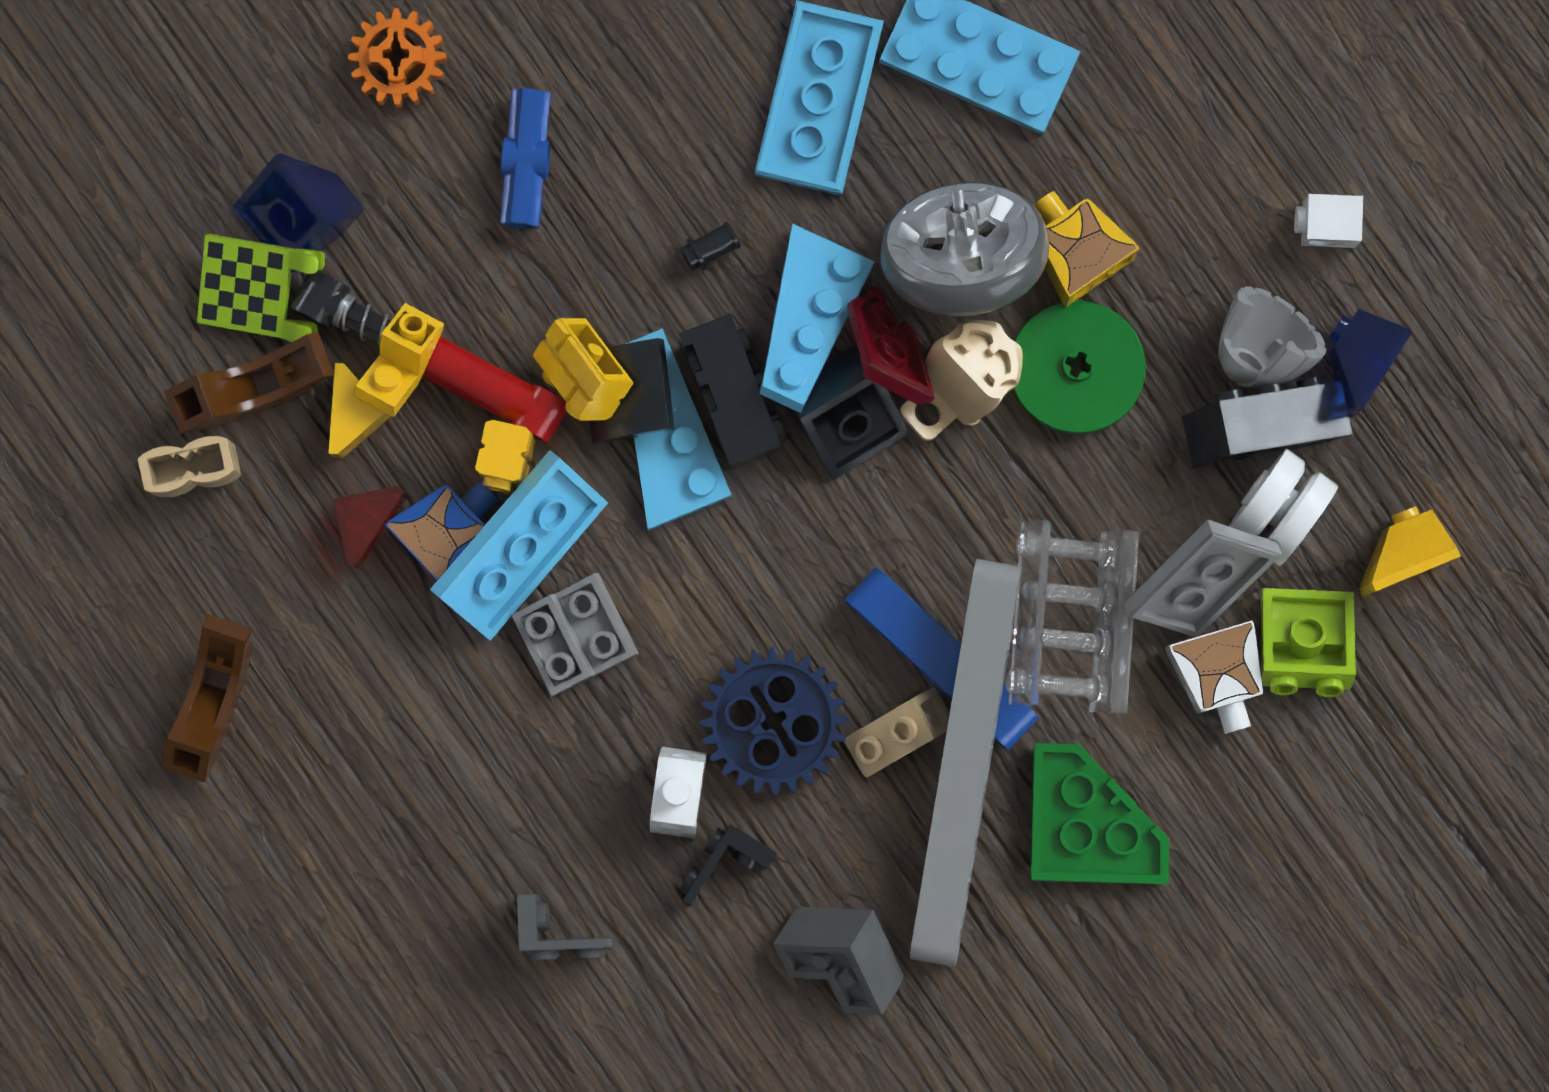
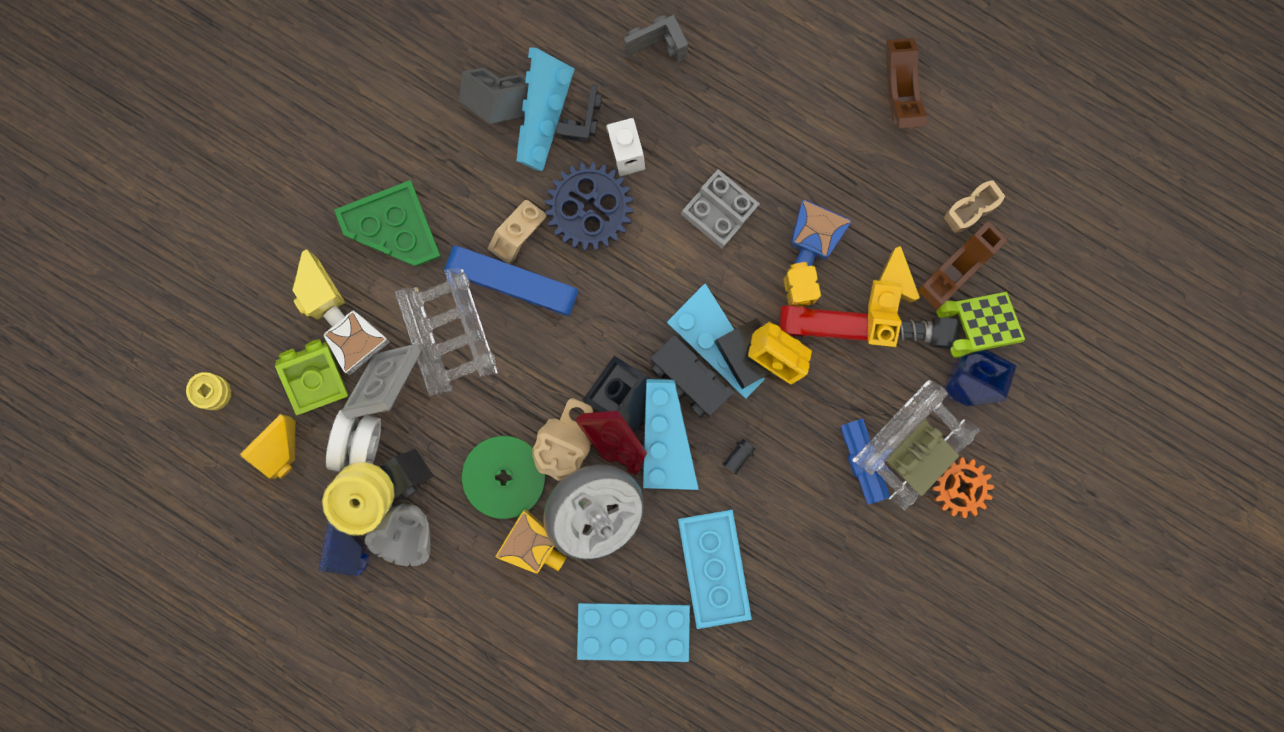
camera: 160 degrees right, 0 degrees up
(364, 519) = (864, 219): clear red slope -> none
(440, 121) = (922, 457): none -> olive hinge
(454, 178) = (890, 437): none -> clear fence
(519, 545) = (772, 241): medium azure plate -> none
(767, 920) = (545, 99): none -> medium azure wing
(966, 762) = (472, 227): light grey beam -> none
(1245, 770) = (314, 288): none -> light yellow slope
(1308, 412) = (358, 498): none -> light yellow wheel
(1330, 220) = (394, 621): white brick -> none
(1472, 683) = (208, 391): none -> light yellow wheel

